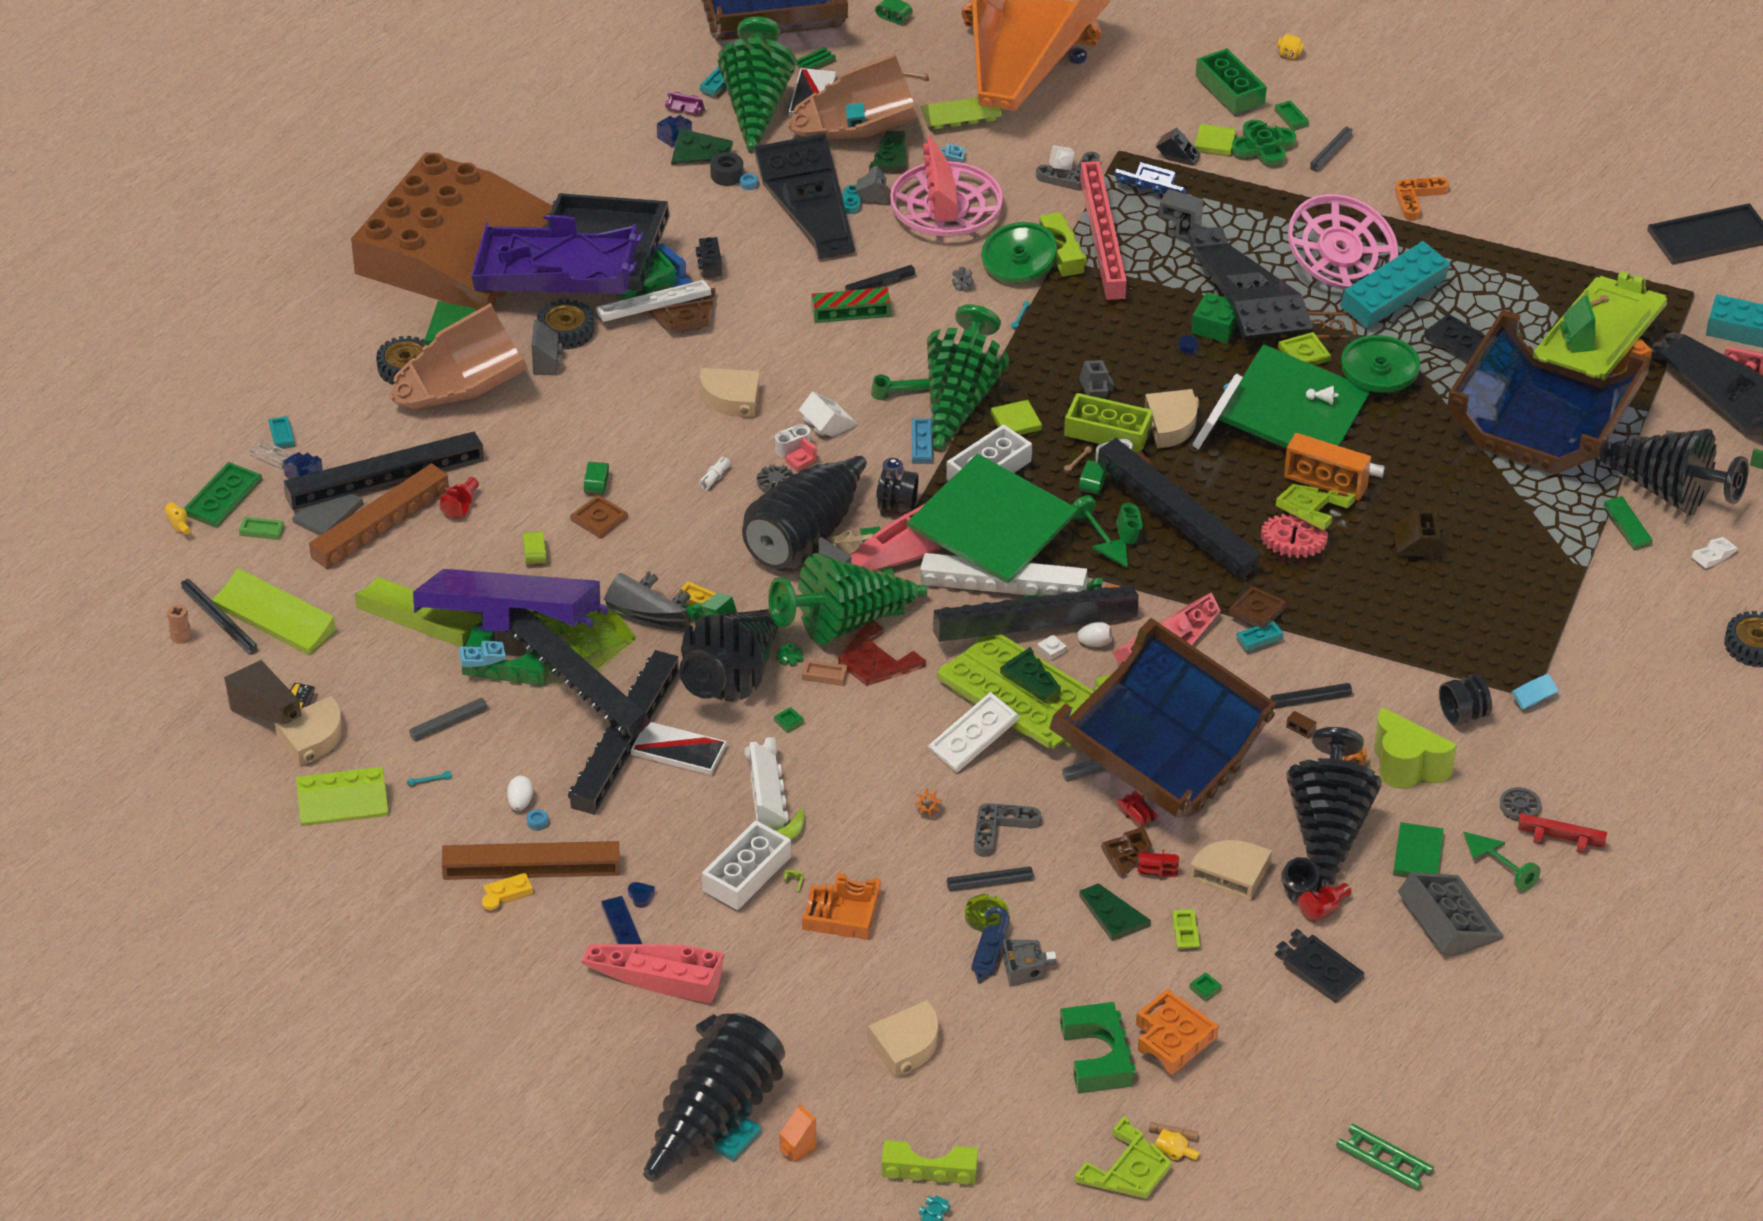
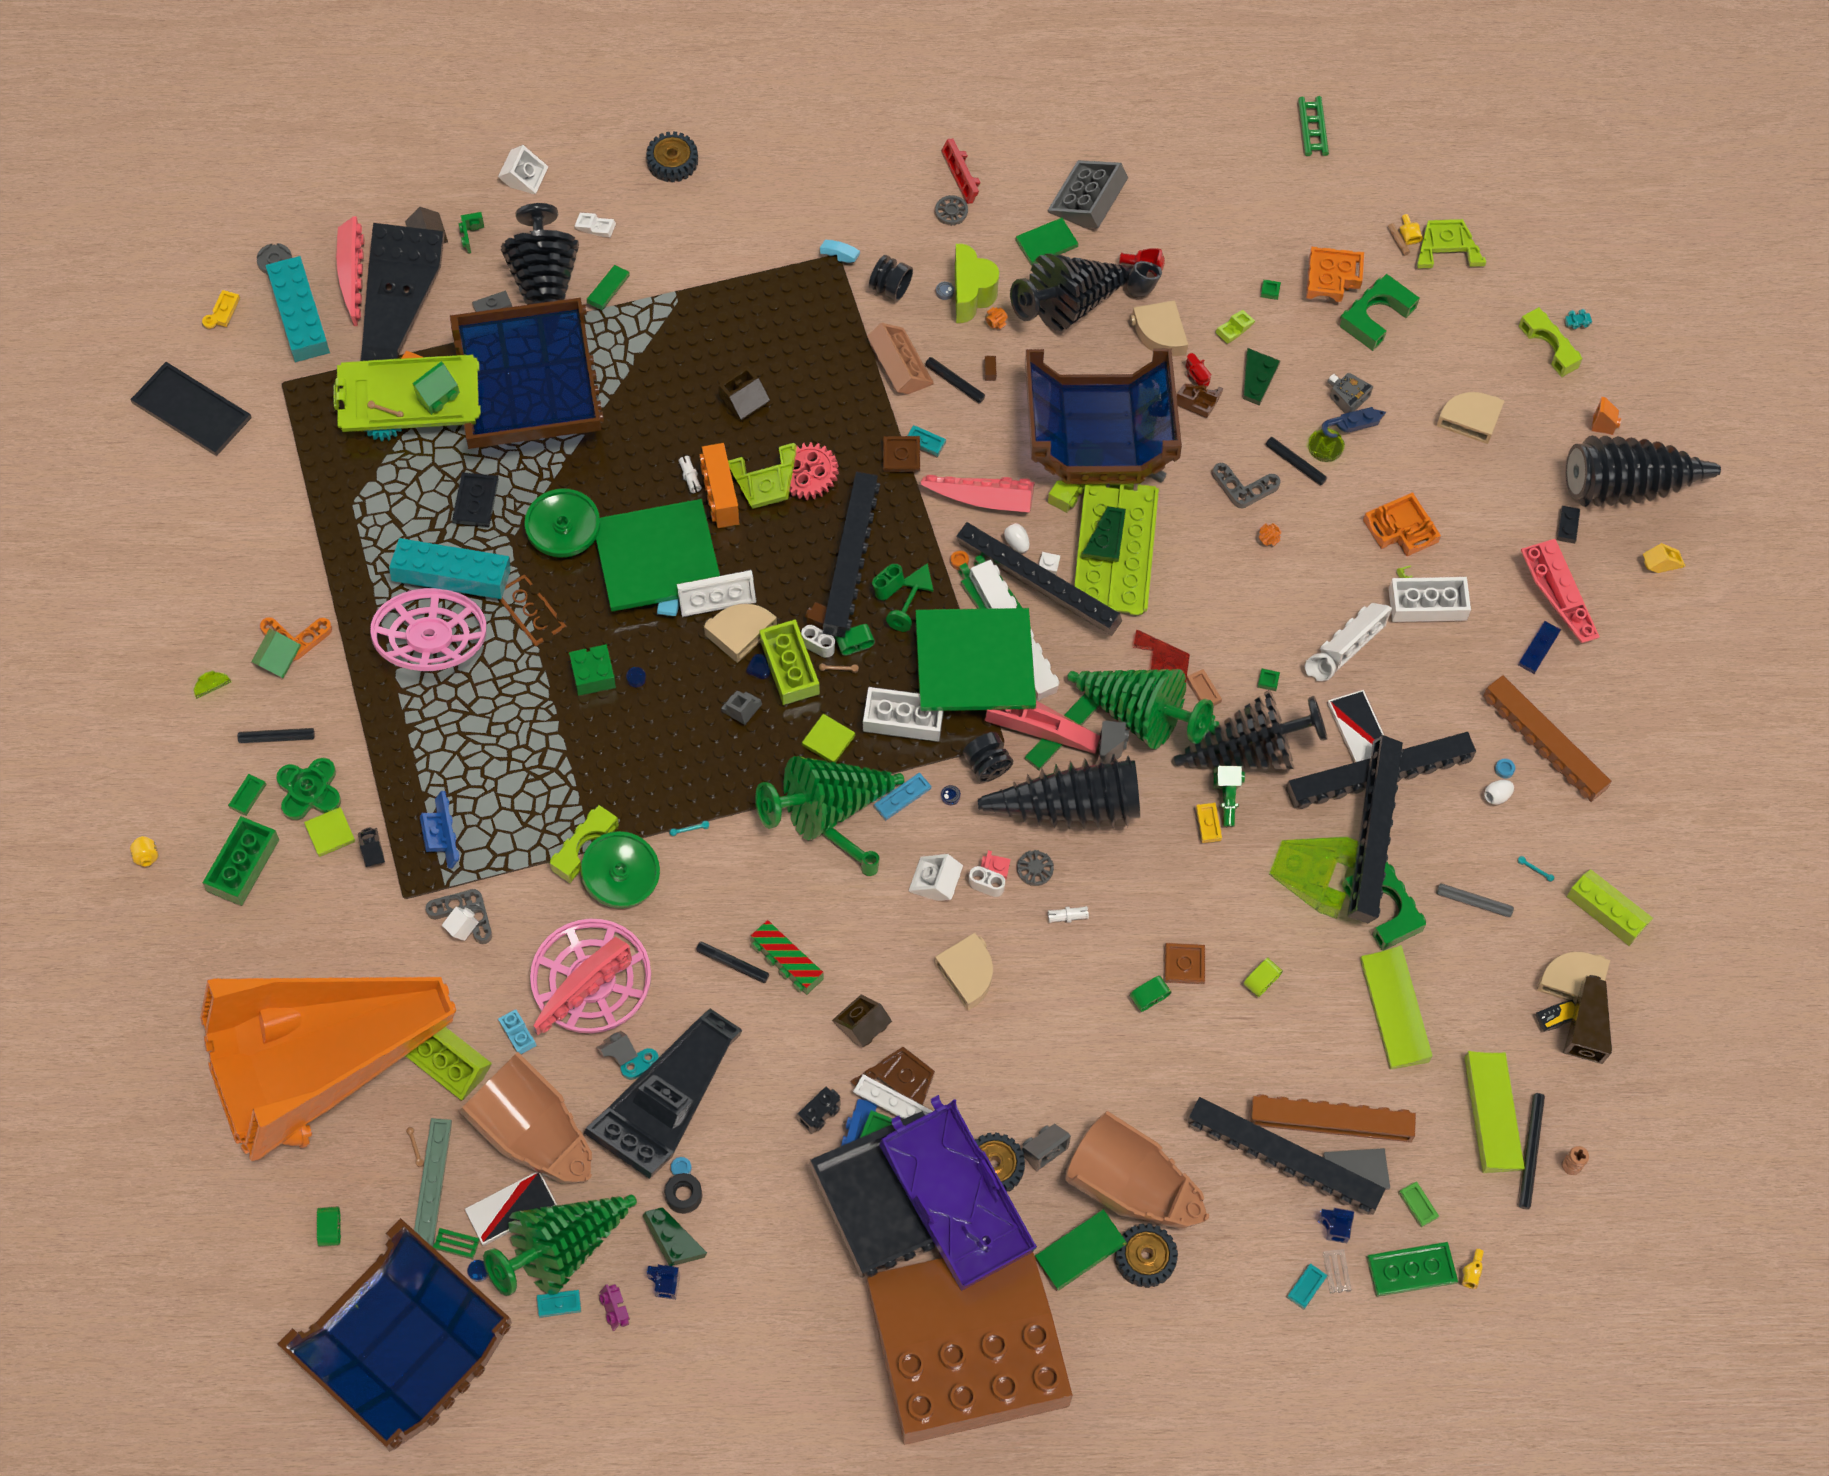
camera: 130 degrees left, 20 degrees up
(458, 499) = (1266, 1075): red piece -> none
(488, 653) = (1413, 910): medium azure slope -> none
(497, 592) = (1352, 926): dark purple piece -> none
(506, 890) = (1584, 739): yellow hinge -> none
(605, 1075) = (1663, 558): none -> yellow slope
(640, 894) = (1504, 655): clear blue tile -> none
(646, 606) = (1257, 849): dark grey piece -> none
(754, 316) = (862, 1020): none -> dark brown slope
(794, 828) = (1359, 603): lime piece -> none
(847, 541) = (1076, 738): tan piece -> none
(849, 55) = (433, 1179): none -> sand green tile
(855, 114) = (531, 1130): teal brick -> none
(891, 153) = (561, 1069): dark green wing -> none
(962, 279) = (682, 896): dark grey plant -> none
(973, 732) = (1183, 547): white tile -> none
(1103, 230) = (544, 820): coral brick -> none
(1182, 209) = (481, 765): dark grey brick -> none
(1260, 310) = (539, 661): black wing -> none
(1306, 348) = (578, 593): lime tile -> none
(1319, 965) = (1197, 237): black tile -> none
(1325, 394) = (634, 532): white piece -> none
(1367, 667) = (899, 358): none -> nougat slope
(1406, 170) = (276, 653): none -> slope
(1416, 138) = (209, 682): none -> clear neon green tile
(1525, 876) = (1009, 211): green piece -> none

